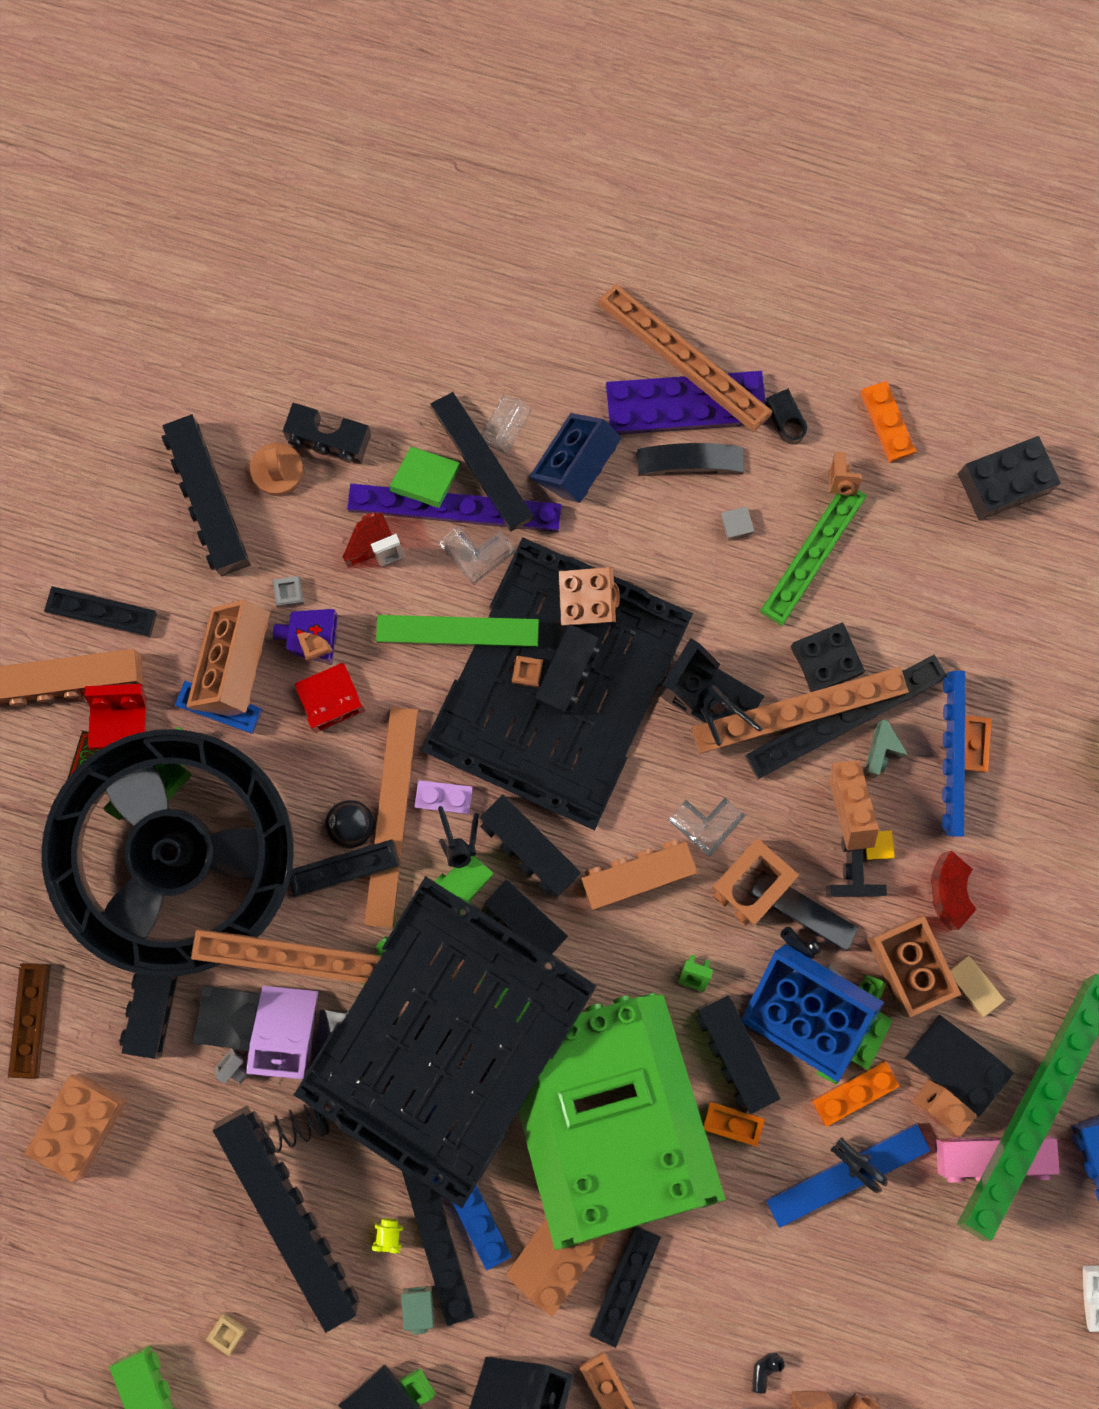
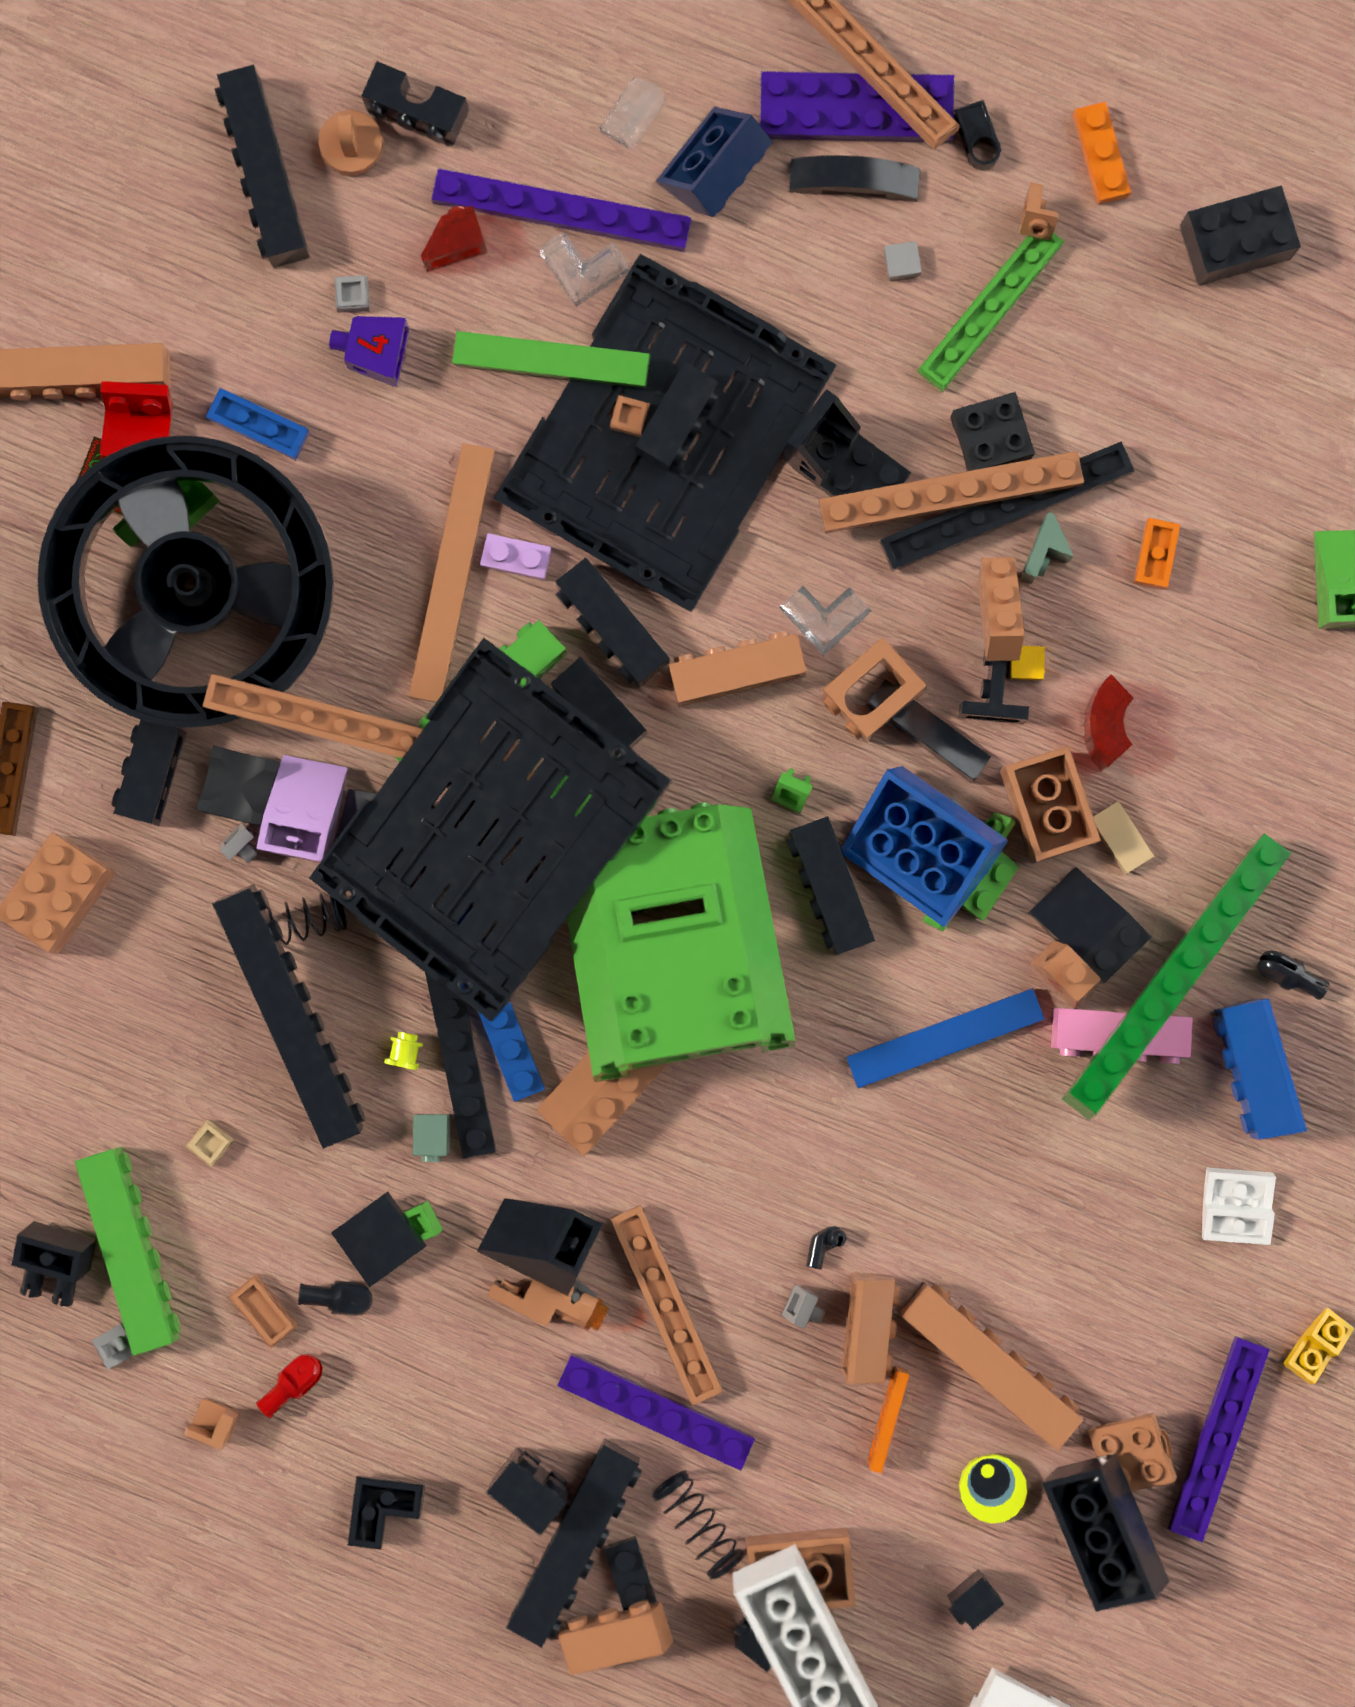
camera: 10 degrees right, 5 degrees up
(100, 612) = (125, 297): black tile -> none
(229, 658) = (275, 365): nougat slope -> none
(313, 646) = (376, 359): nougat tile -> none
(329, 697) = (390, 425): red bracket -> none
(344, 868) = (390, 627): black tile -> none
(349, 823) = (401, 577): black helmet -> none
(388, 550) = (475, 252): white tile -> none
(424, 477) = (529, 168): bright green tile -> none
(458, 851) = (525, 617): black plant -> none
(482, 461) = (599, 155): black tile -> none
(588, 596) = (711, 330): nougat plate -> none
(624, 1286) = (672, 1135): black tile -> none
(716, 702) = (850, 472): black plant -> none
(733, 1123) = (817, 965): orange plate -> none
(794, 941) = (913, 764): black arm -> none
(855, 1093) = (964, 946): orange plate -> none
(857, 1163) = (956, 1024): black arm -> none
(954, 763) = (1131, 547): blue plate -> none

